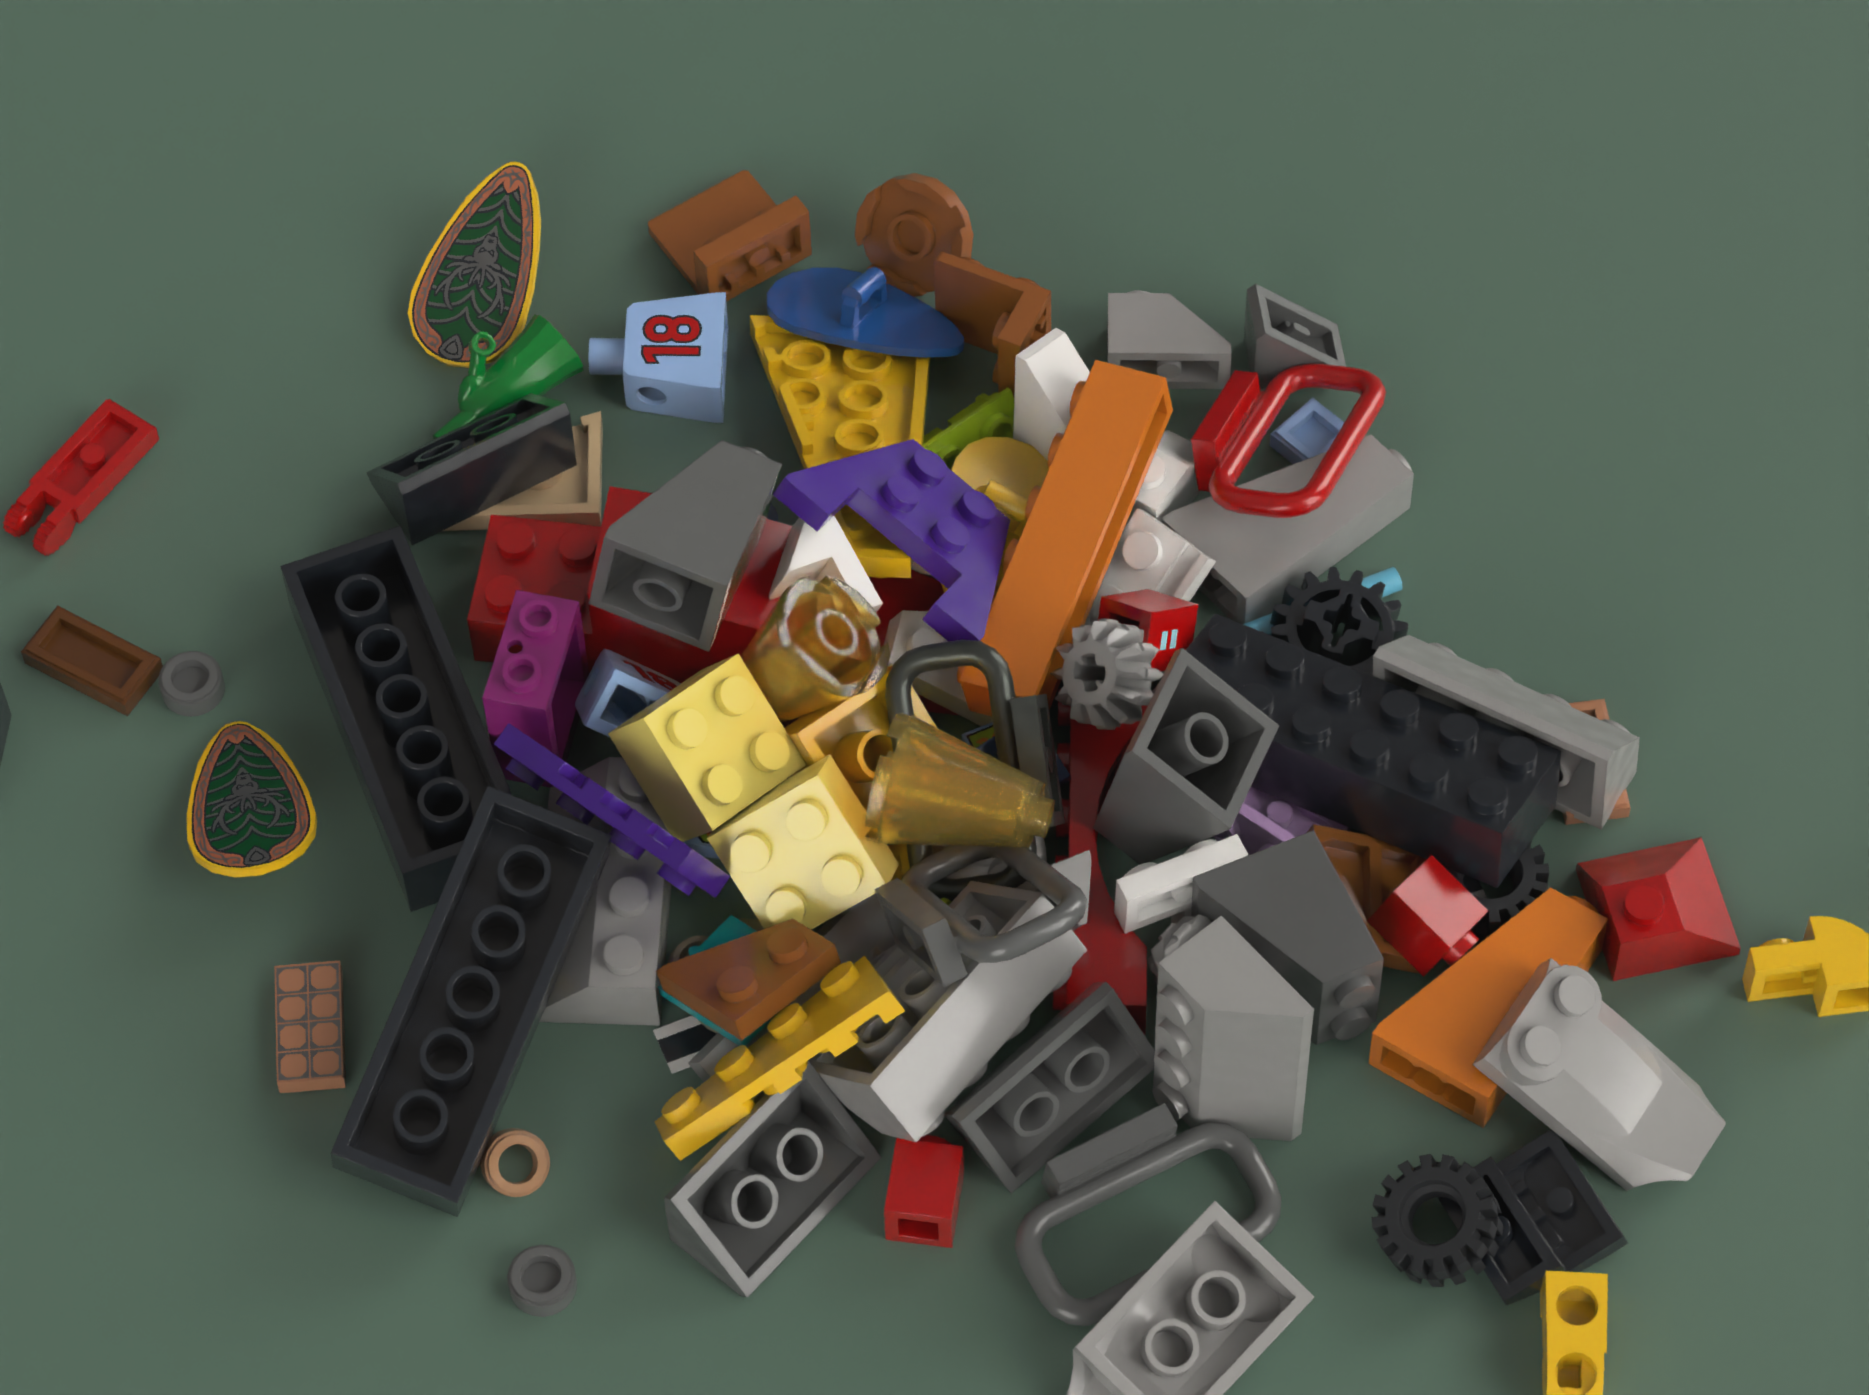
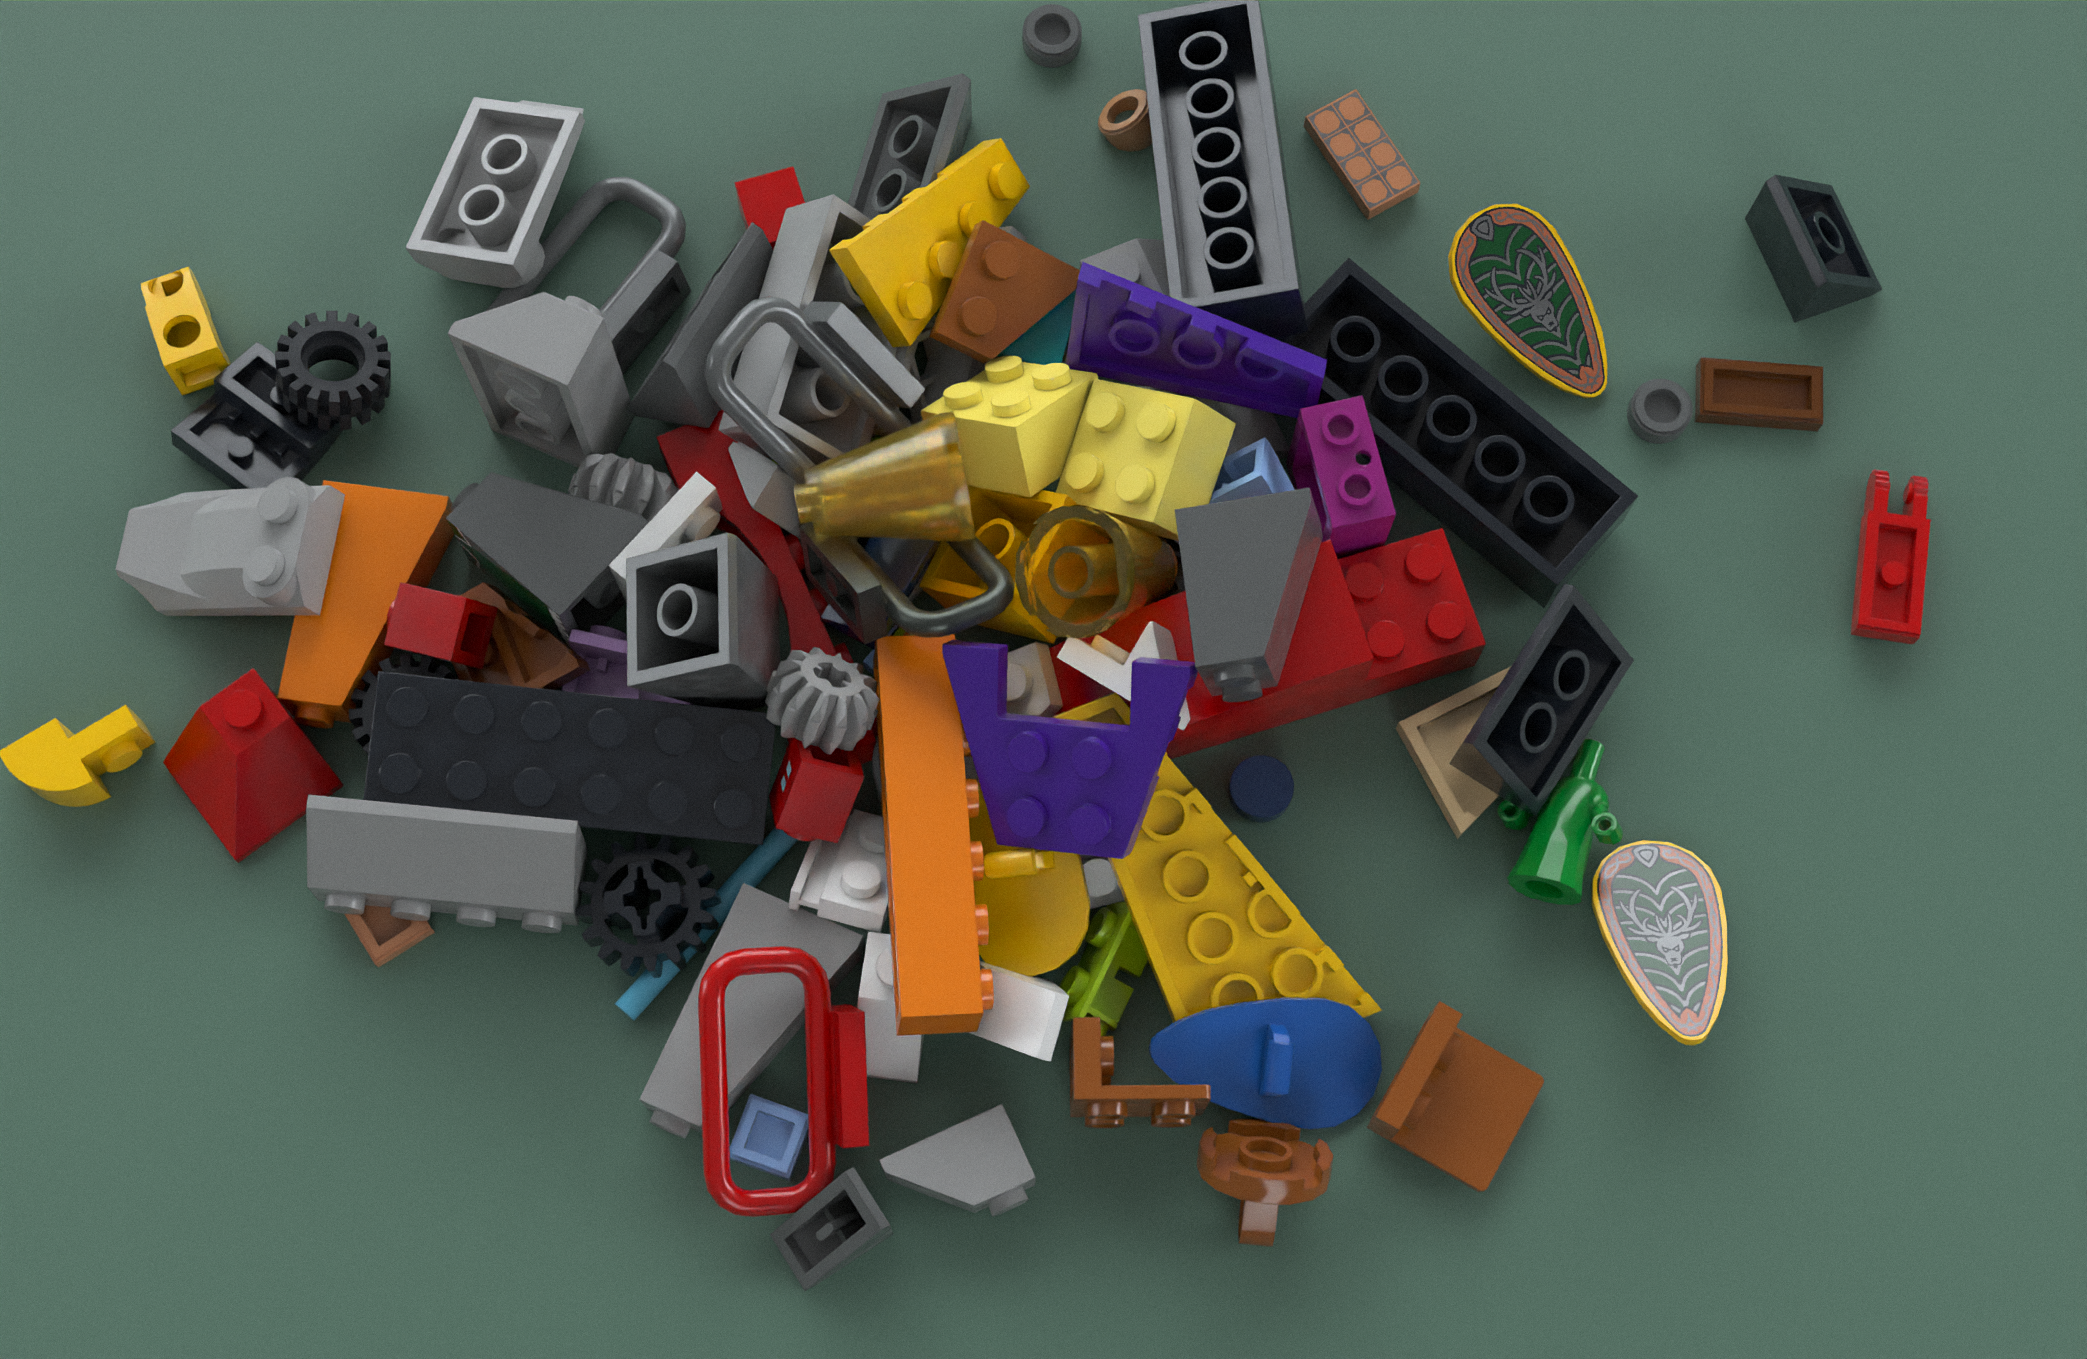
camera: 150 degrees right, 15 degrees up
(670, 356) = (1430, 927): light blue torso -> none

